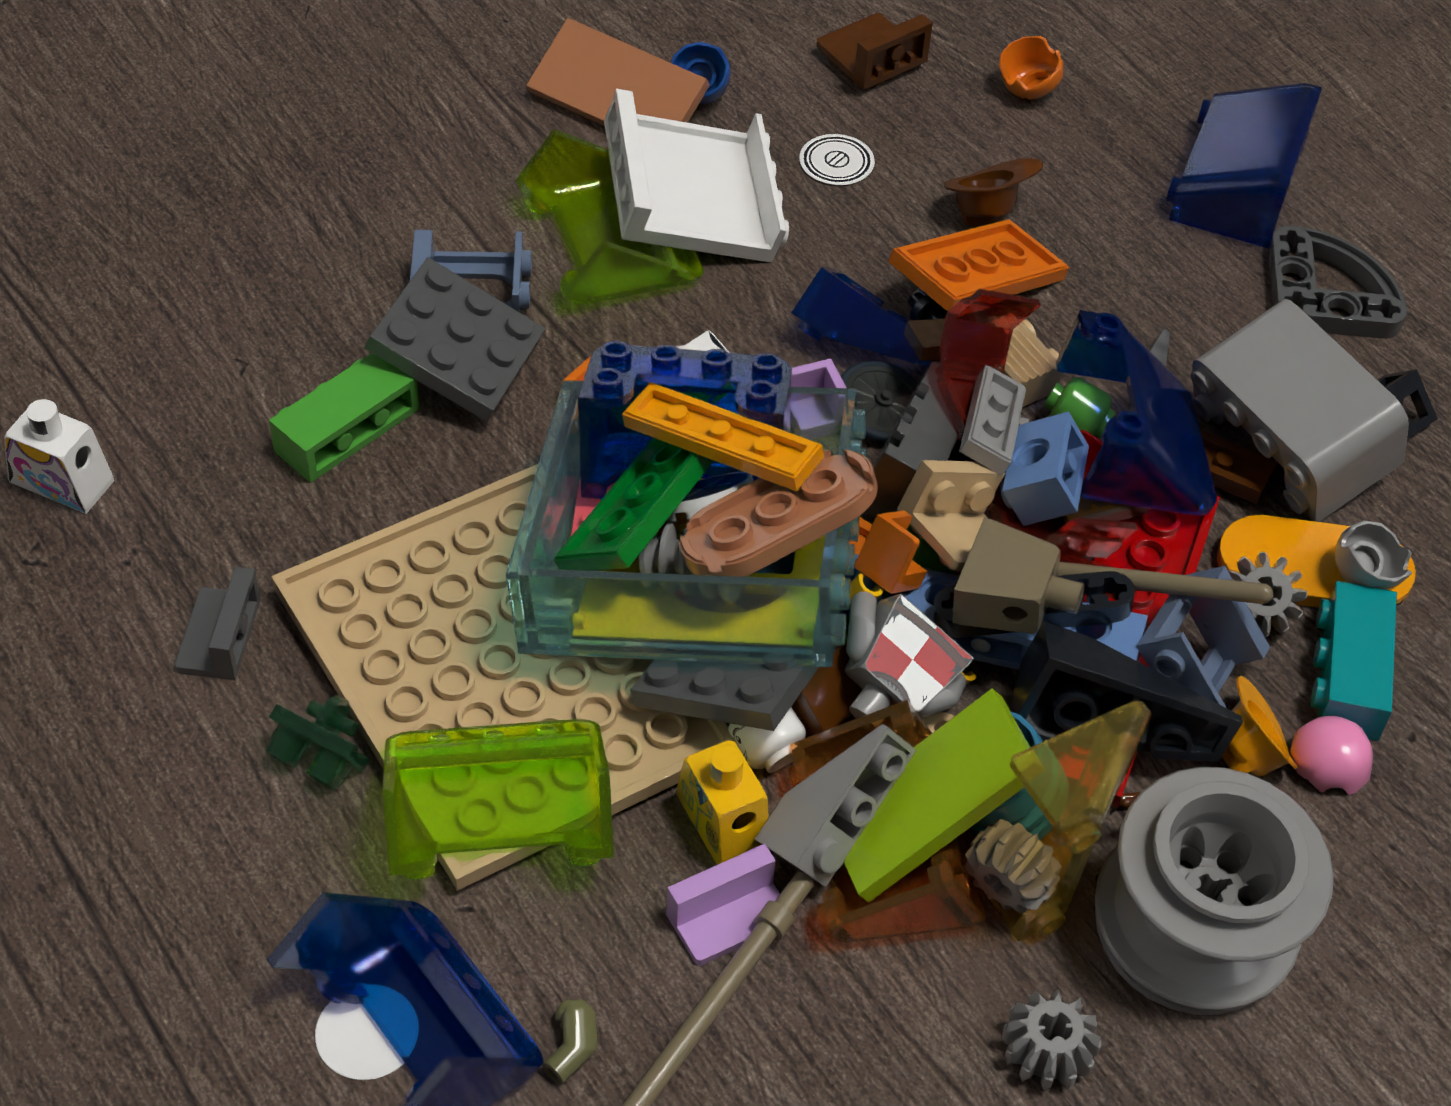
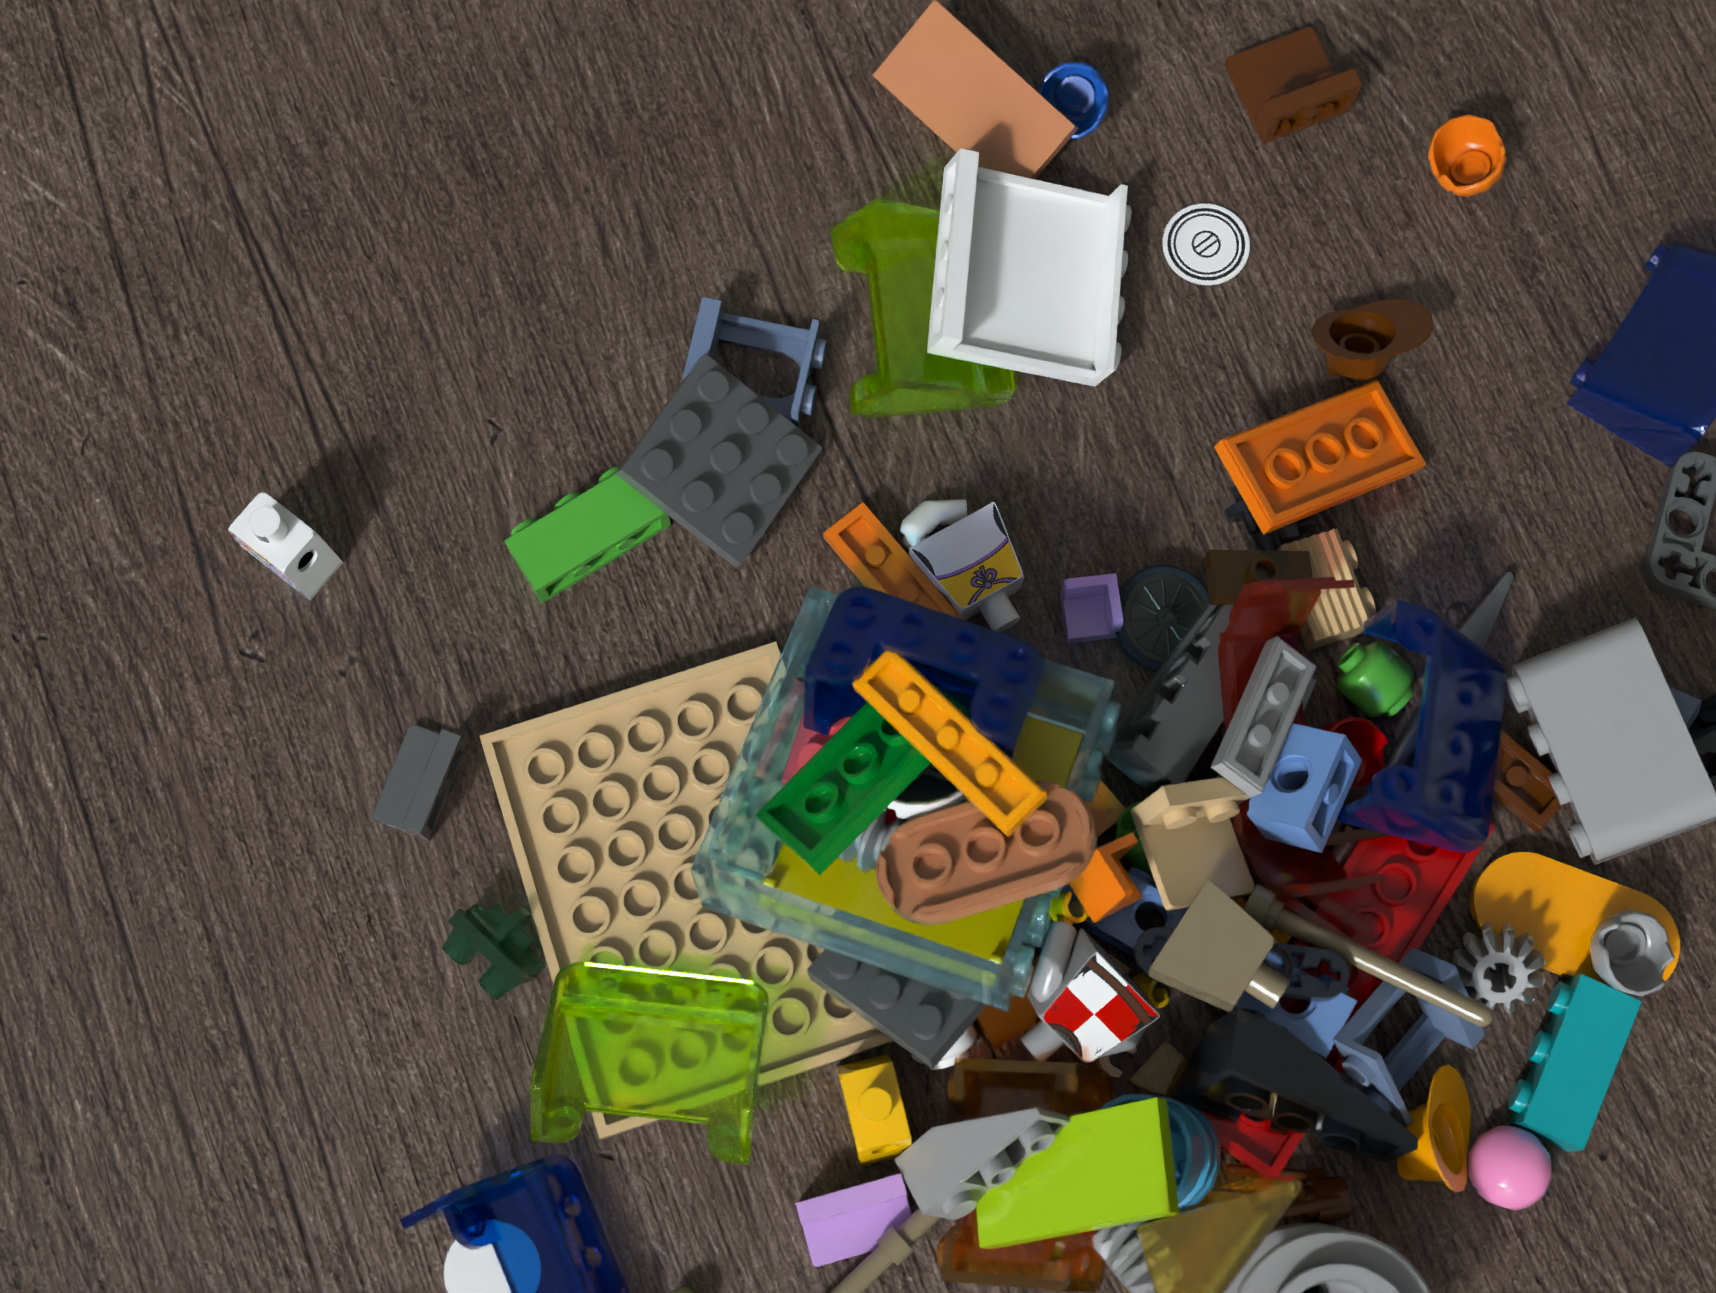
camera: 15 degrees right, 25 degrees up
(852, 315) = (1165, 503): clear blue wedge -> none

